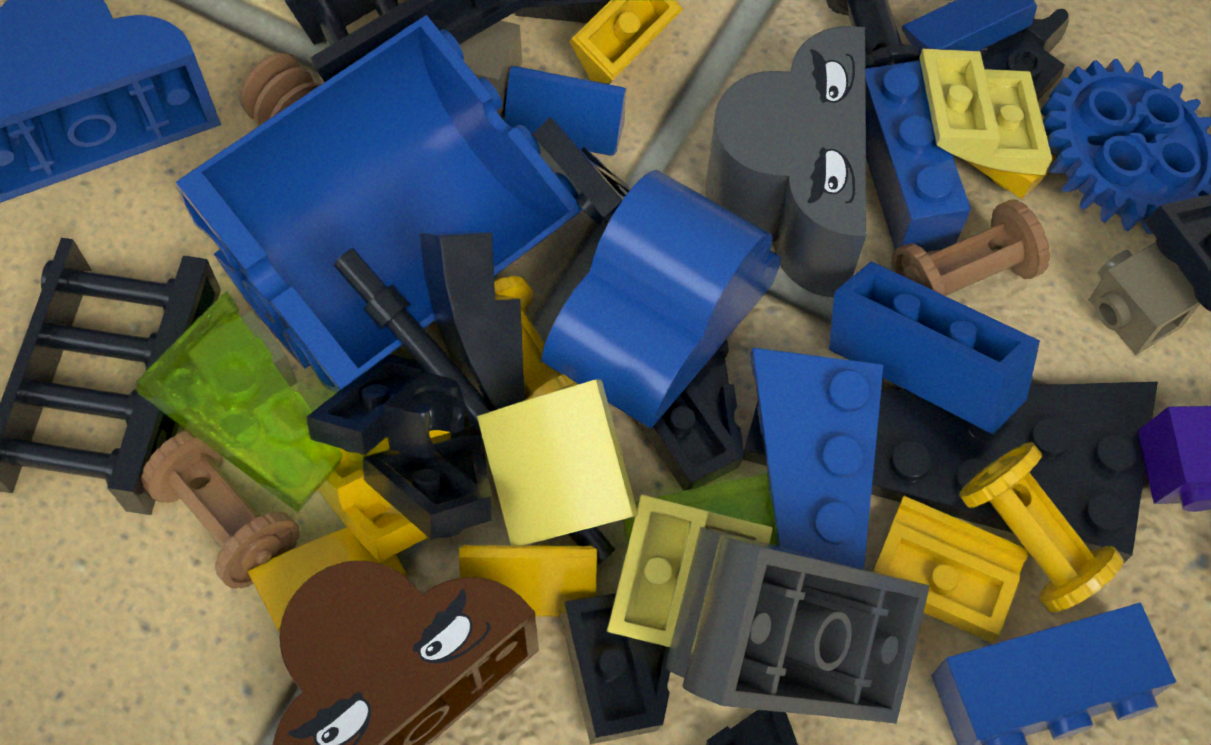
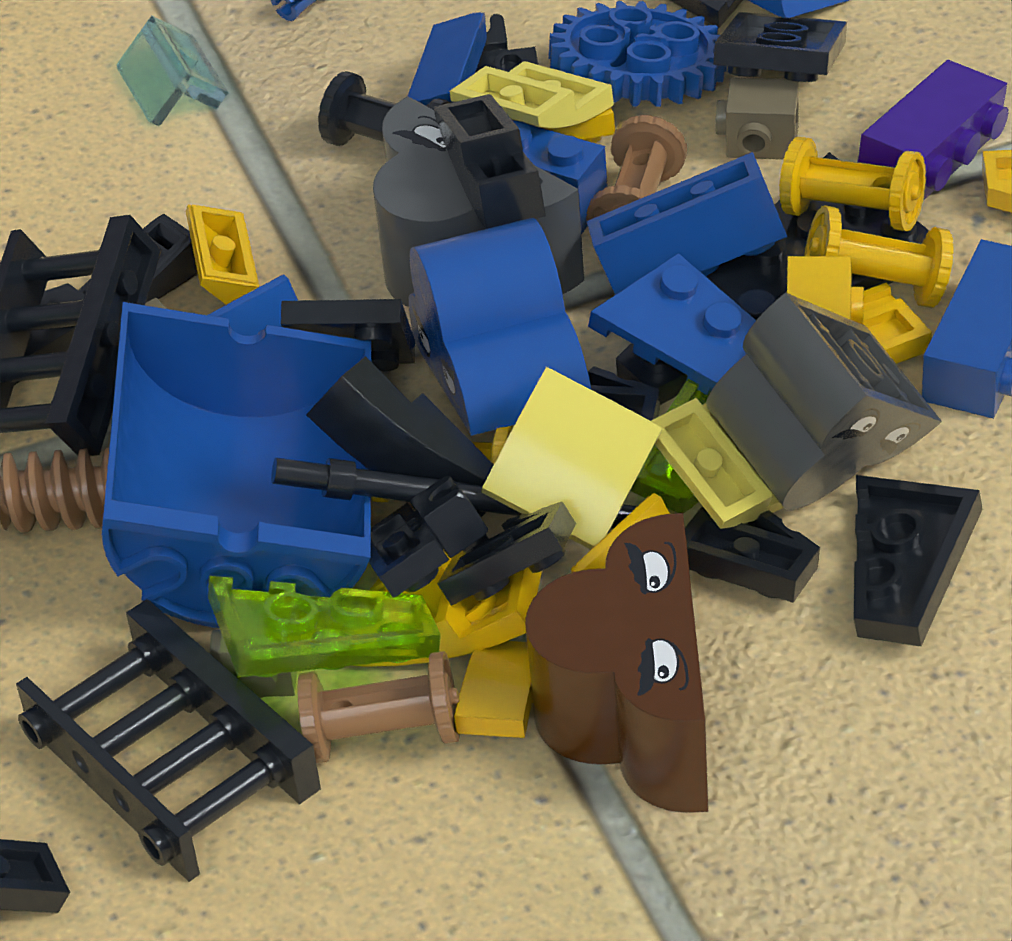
camera: 45 degrees left, 20 degrees down
(821, 147) = (490, 161): none -> black slope
(925, 526) = (826, 283): none -> yellow brick
(1086, 400) = (852, 183): none -> yellow hose

